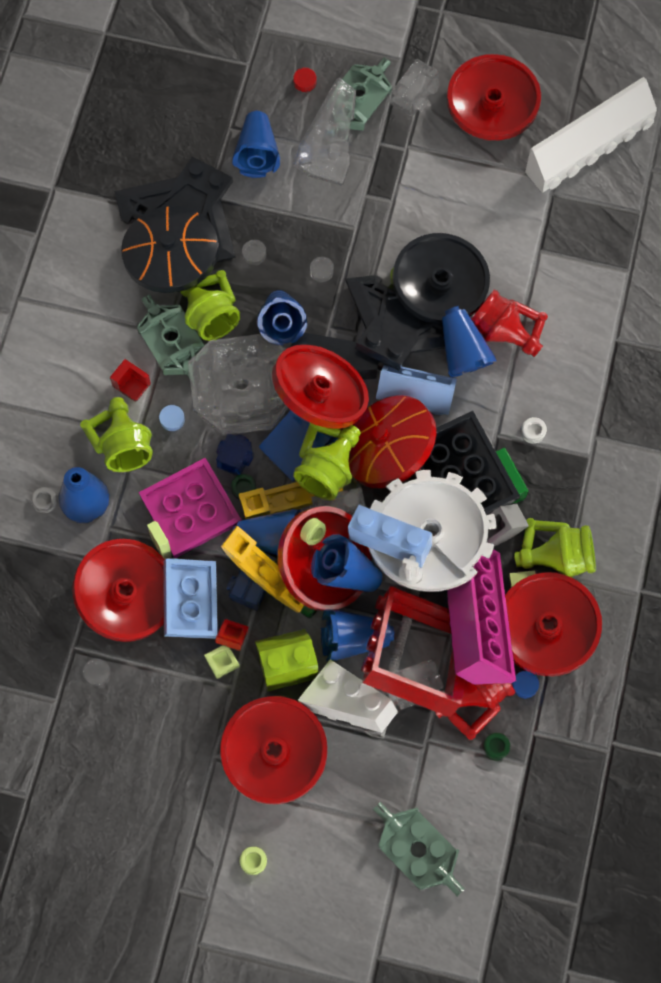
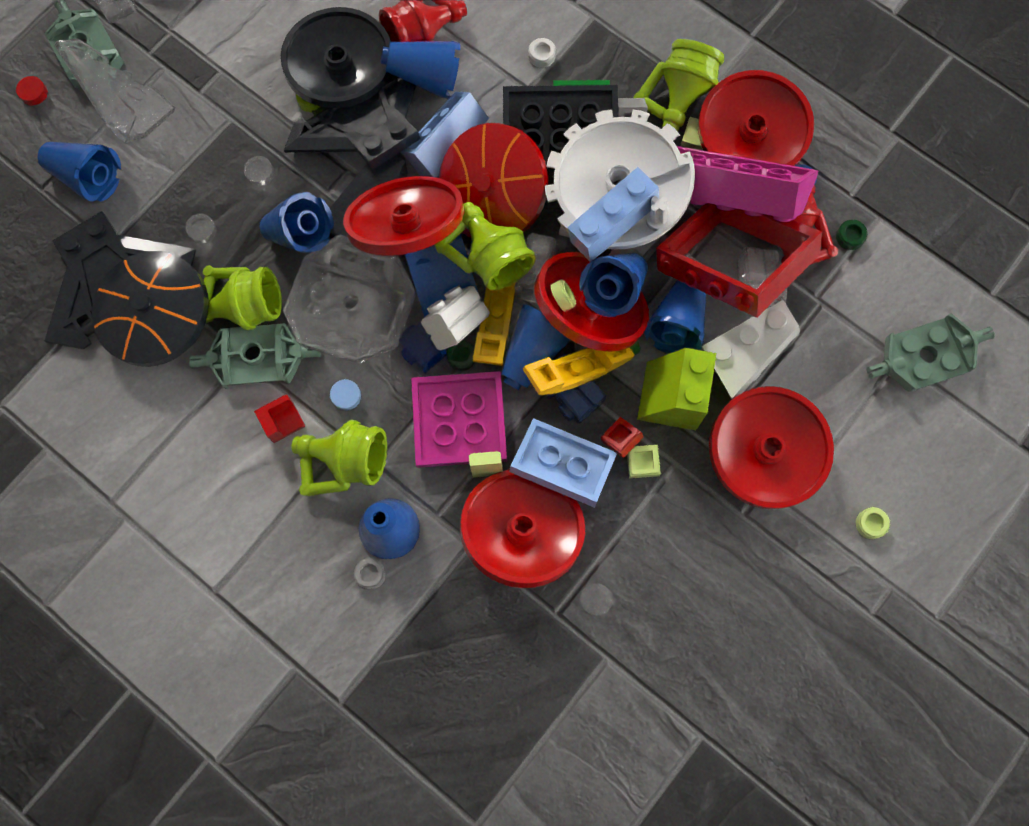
camera: 60 degrees left, 5 degrees up
(264, 464) = (455, 317): none -> white brick

